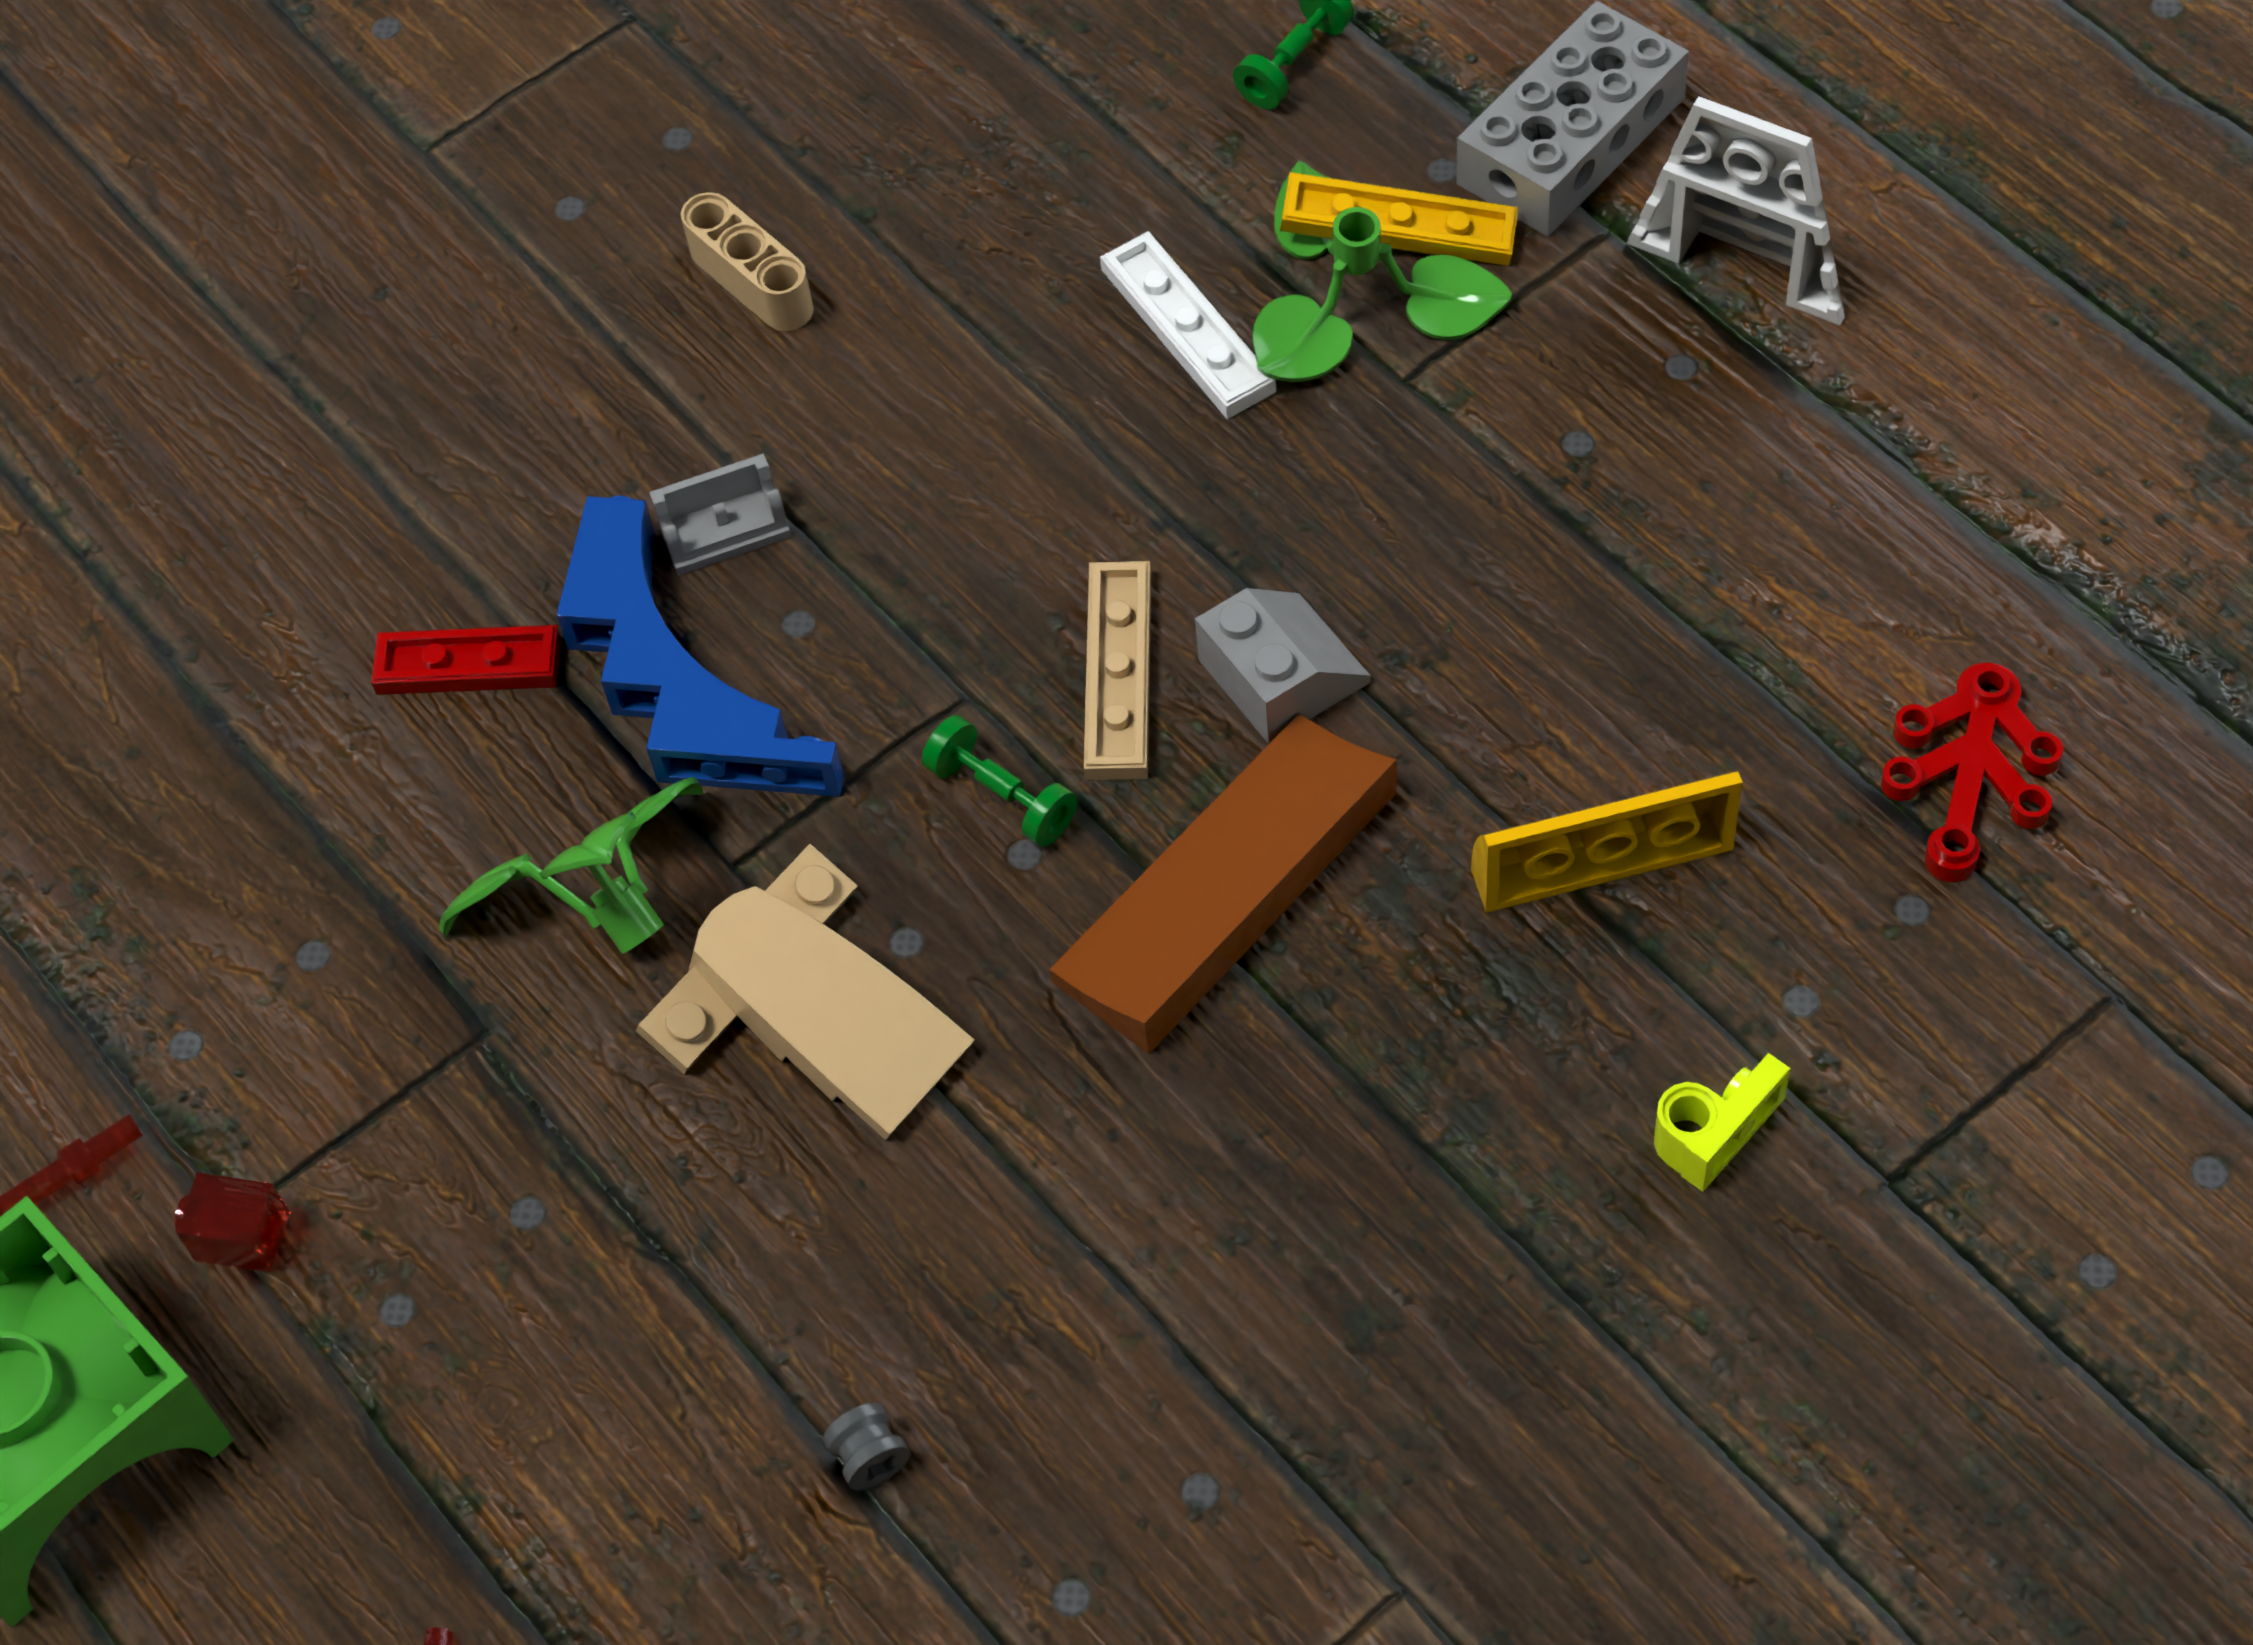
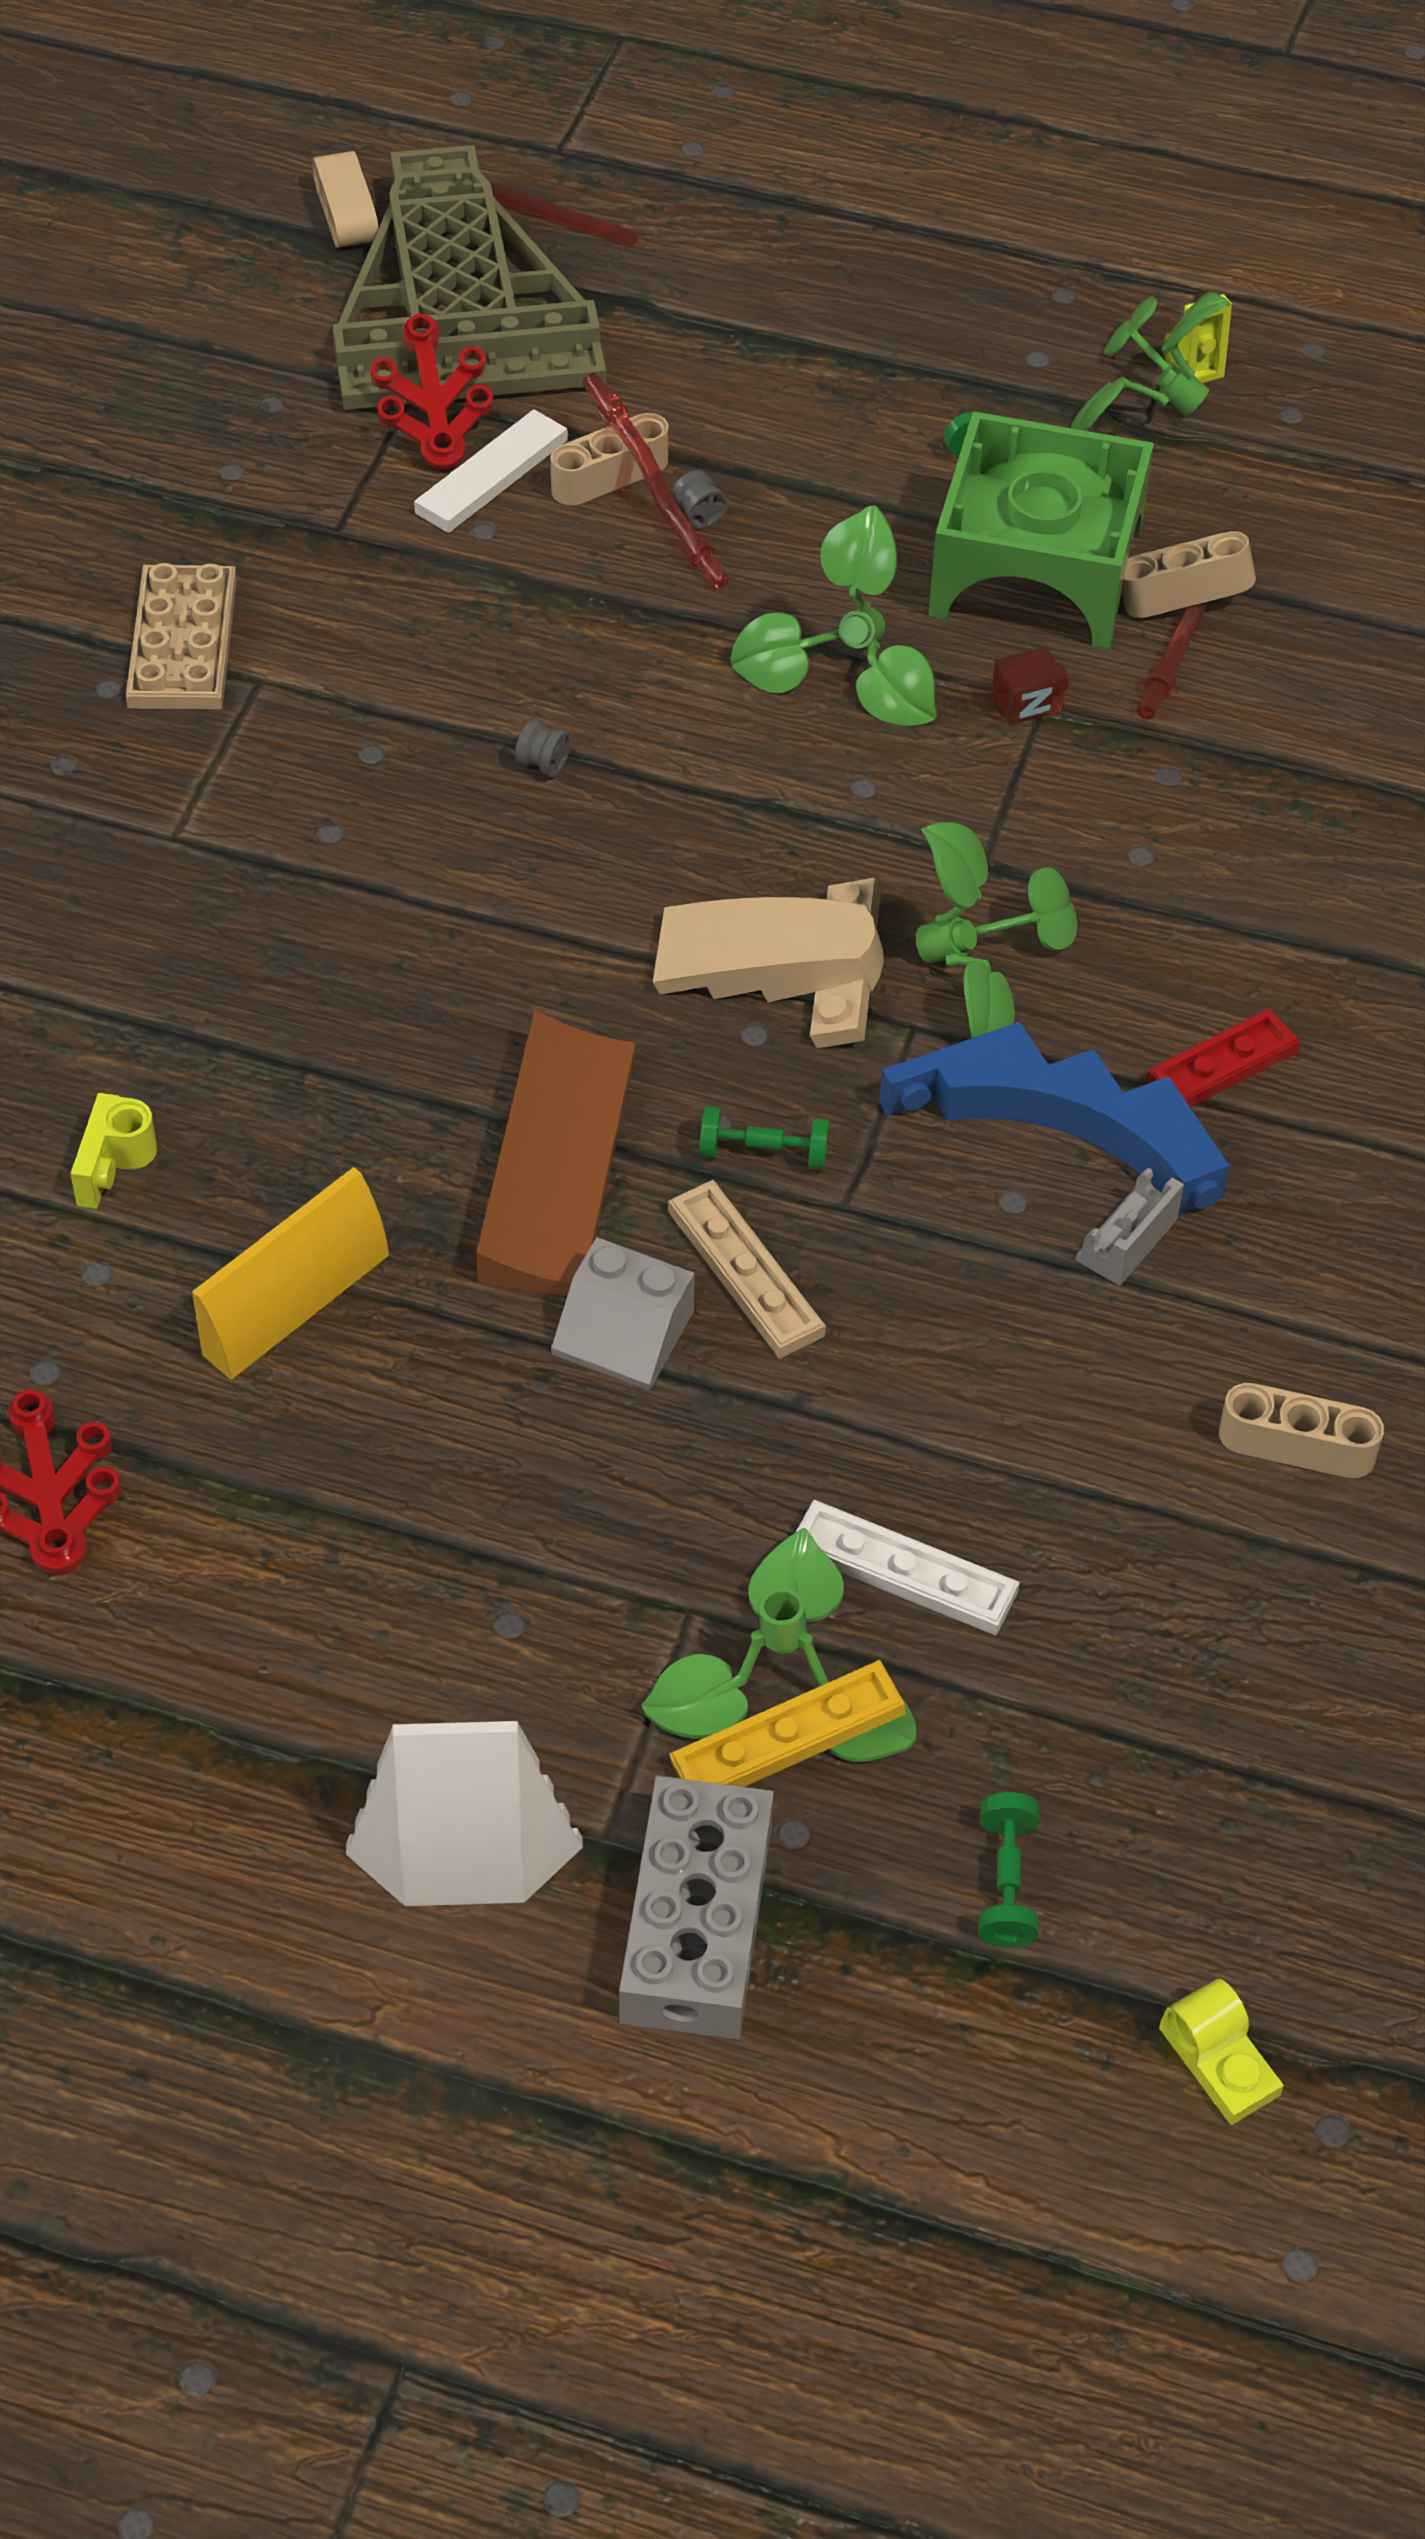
camera: 140 degrees right, 5 degrees down
(322, 1348) = (899, 683): none -> bright green plant

